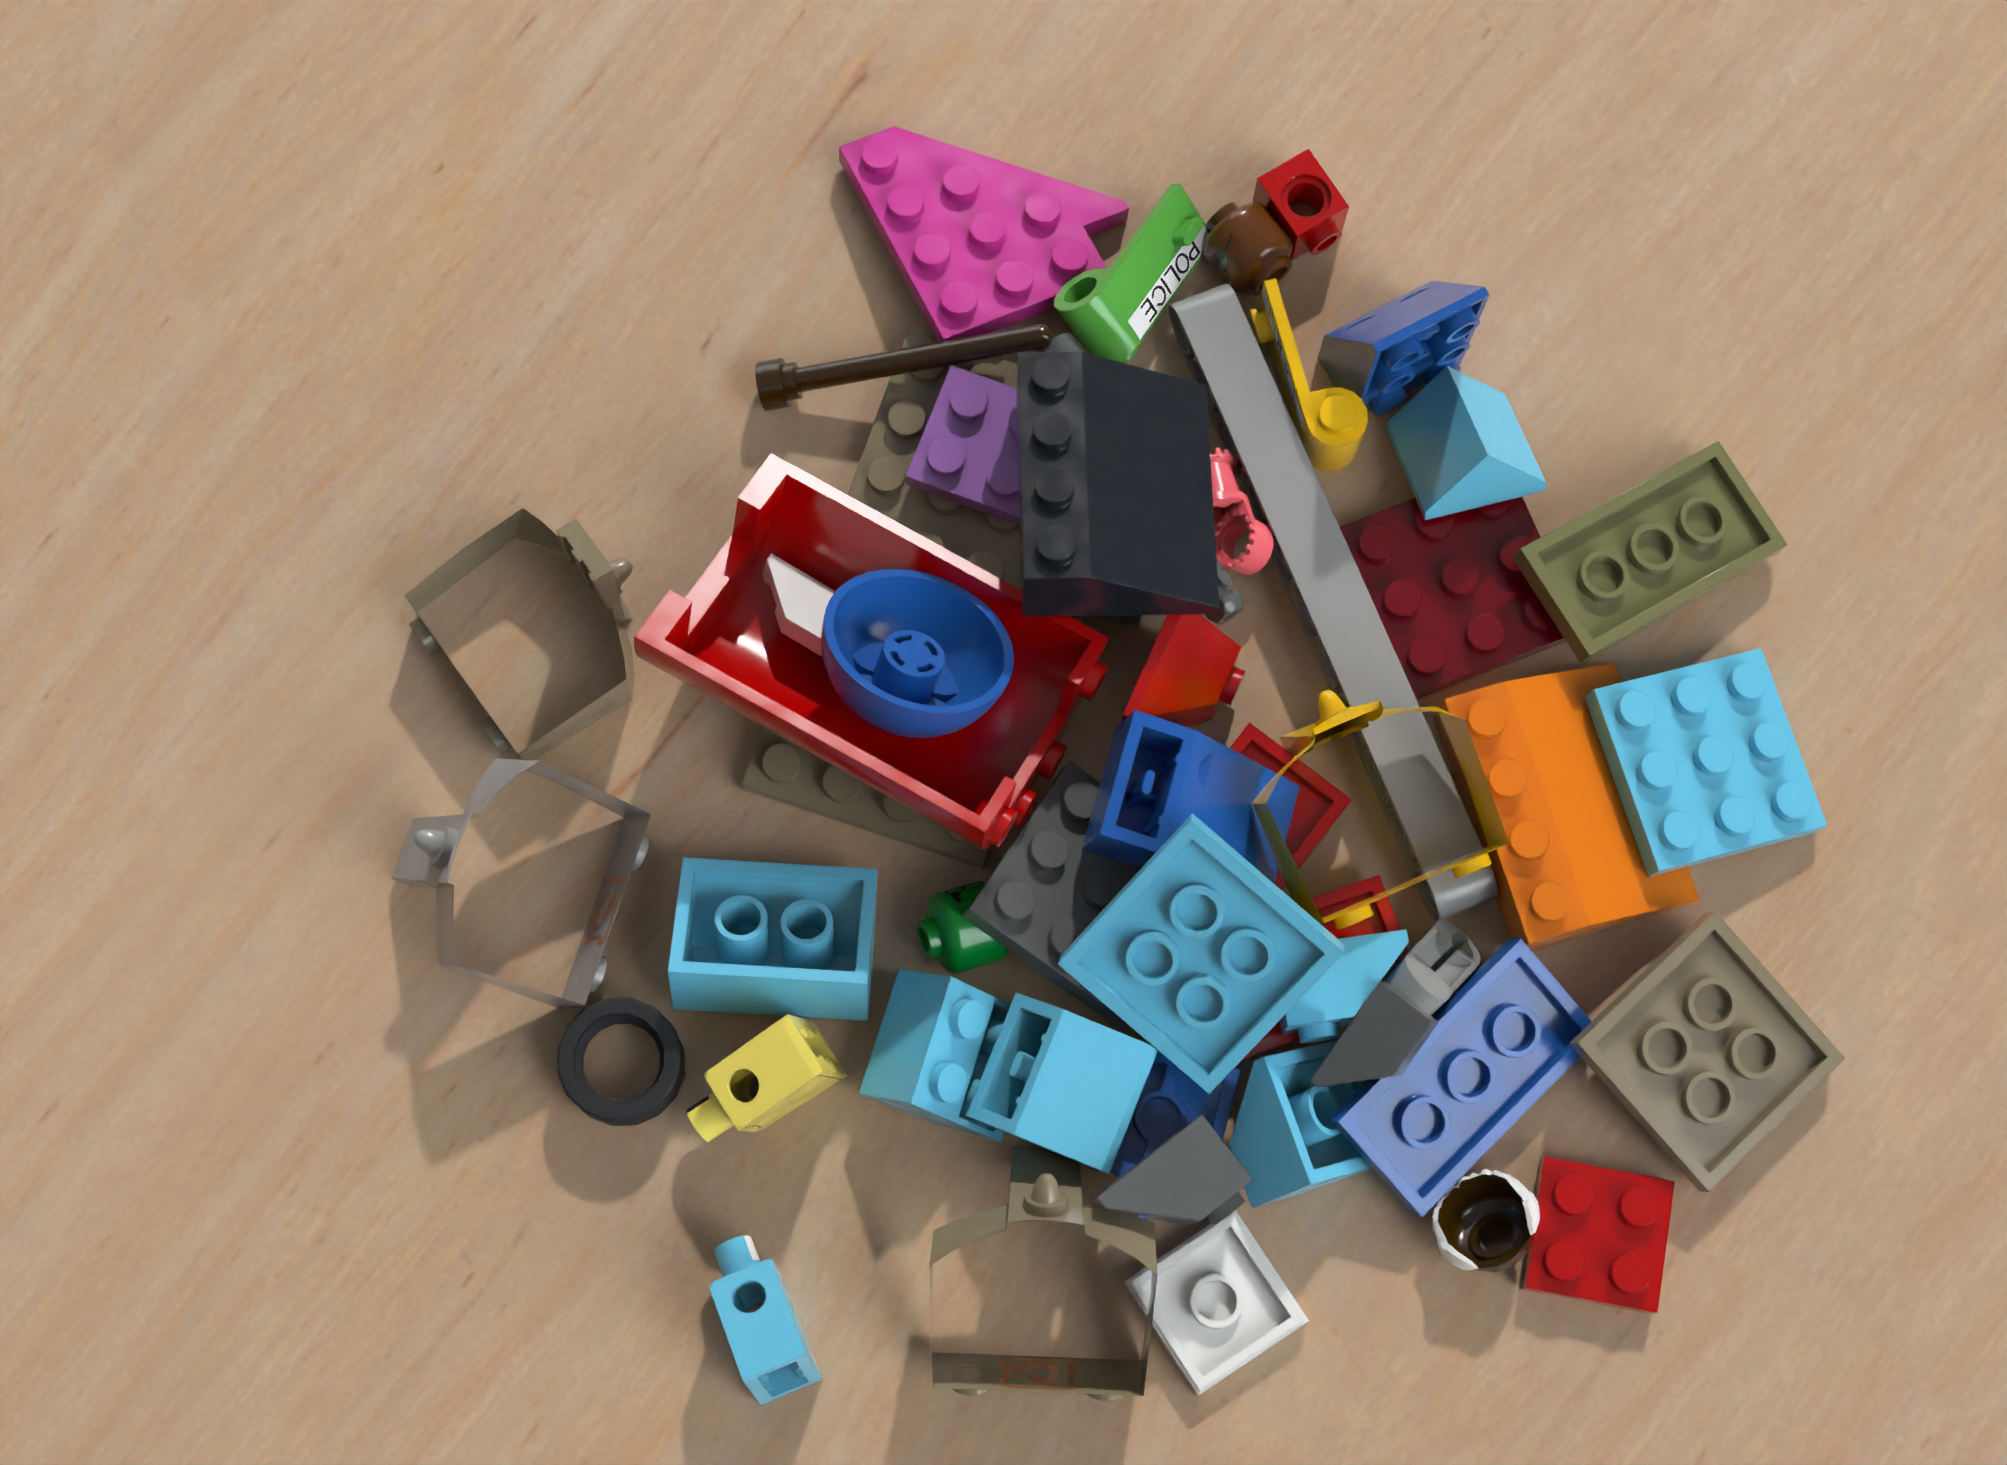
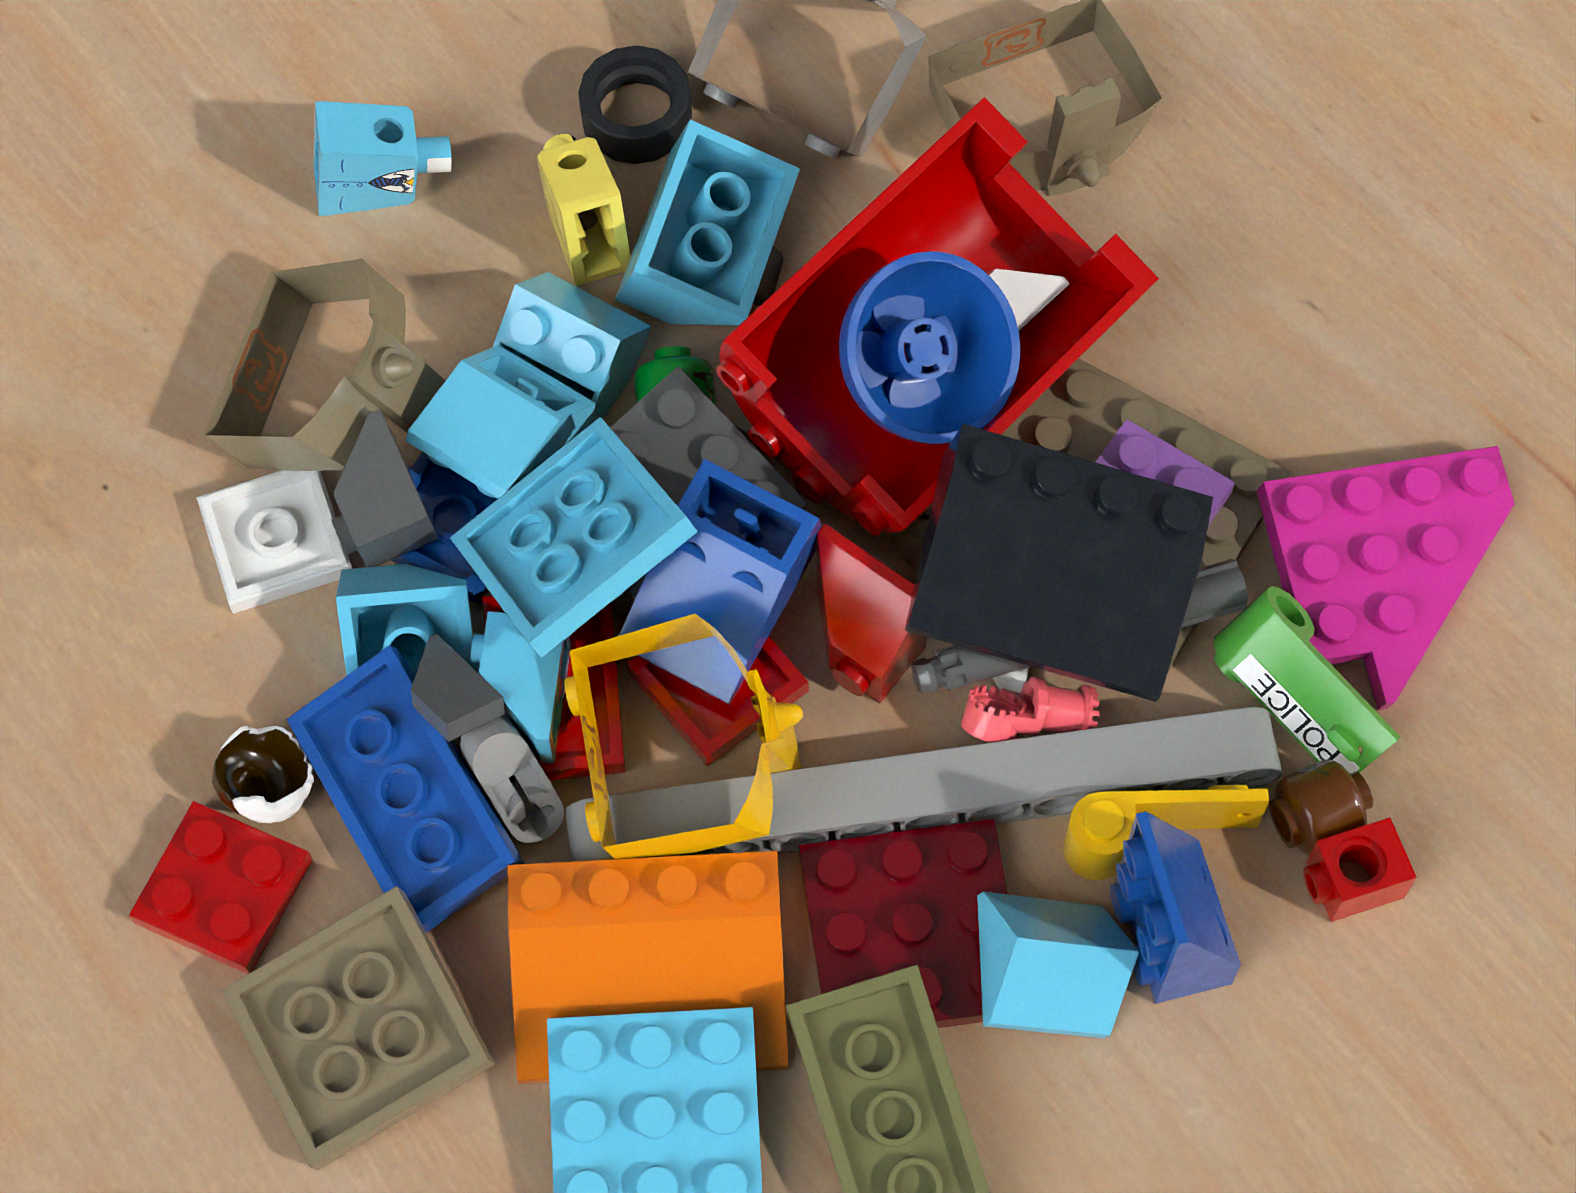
camera: 105 degrees right, 10 degrees down
(783, 382) = (1252, 349): dark brown piece -> none

